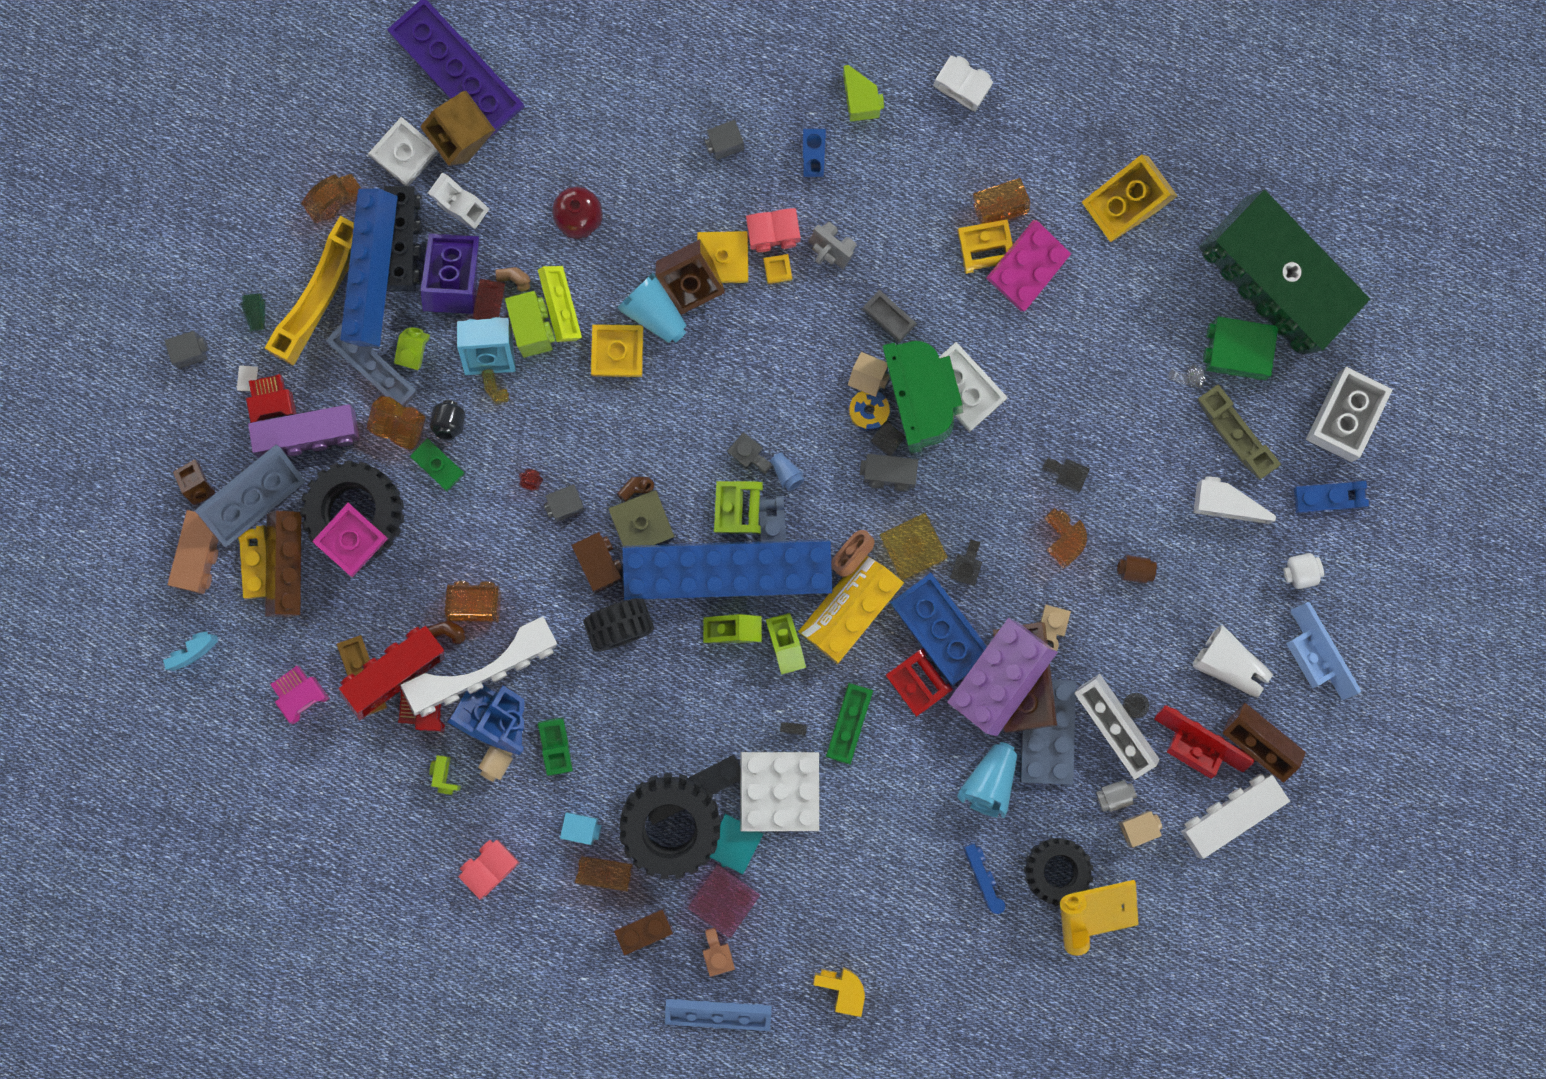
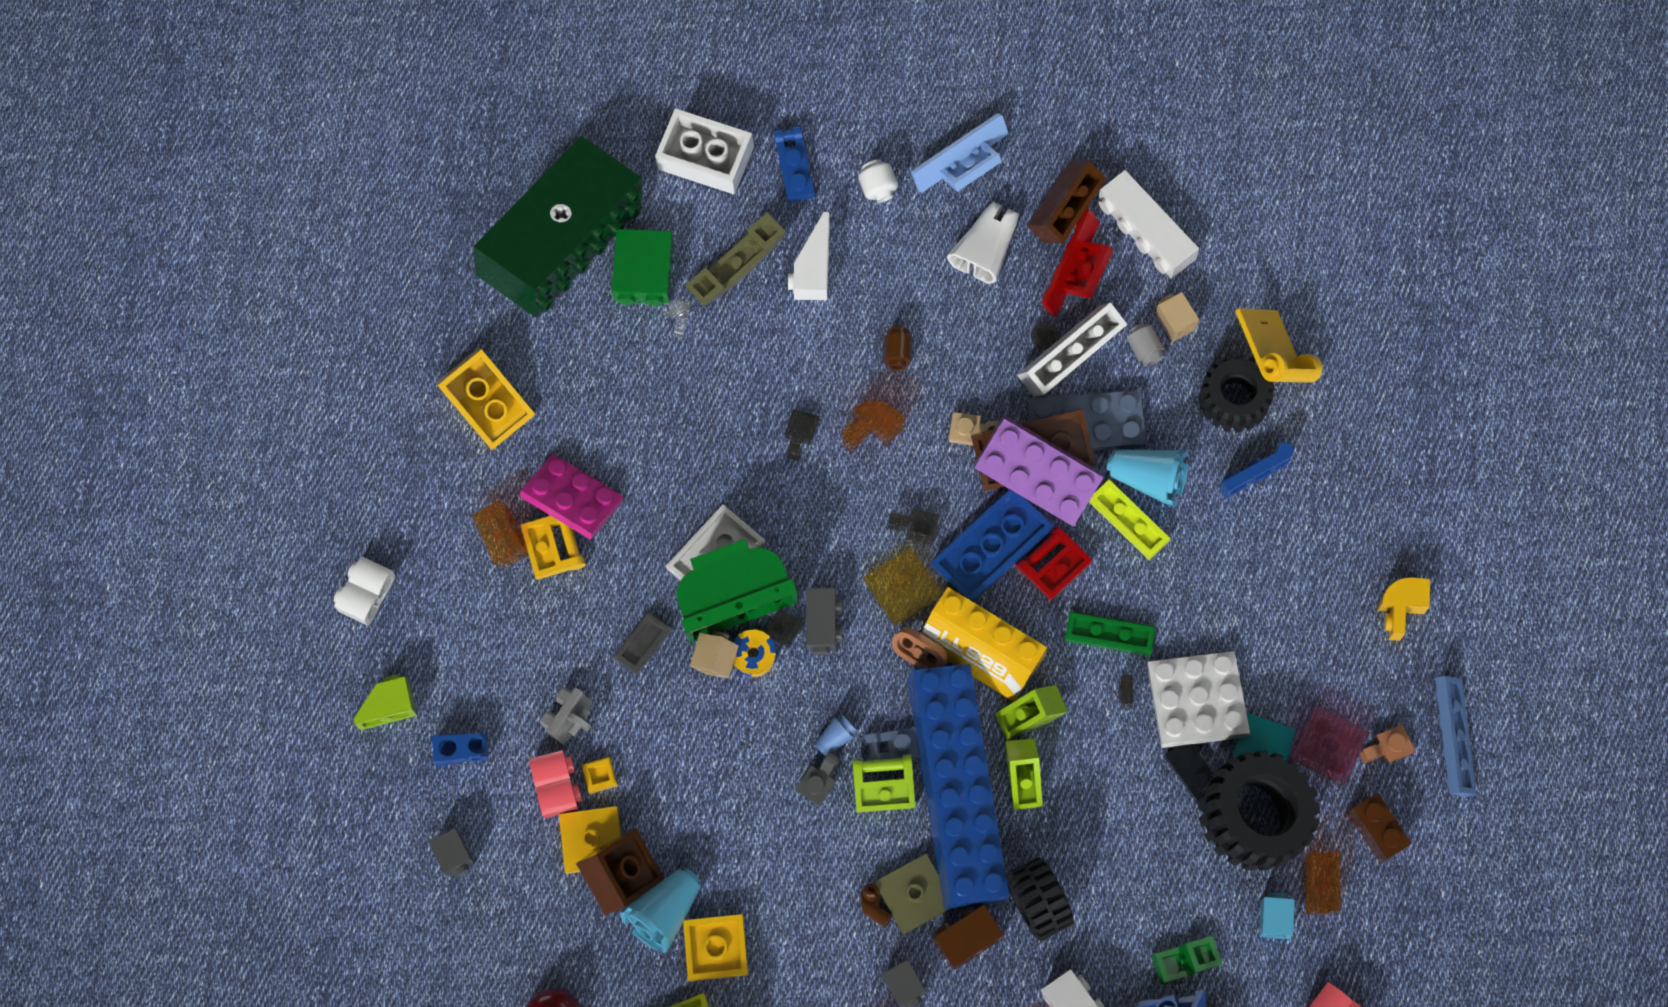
camera: 90 degrees left, 10 degrees down
(951, 755) = (1129, 519): none -> neon yellow plate

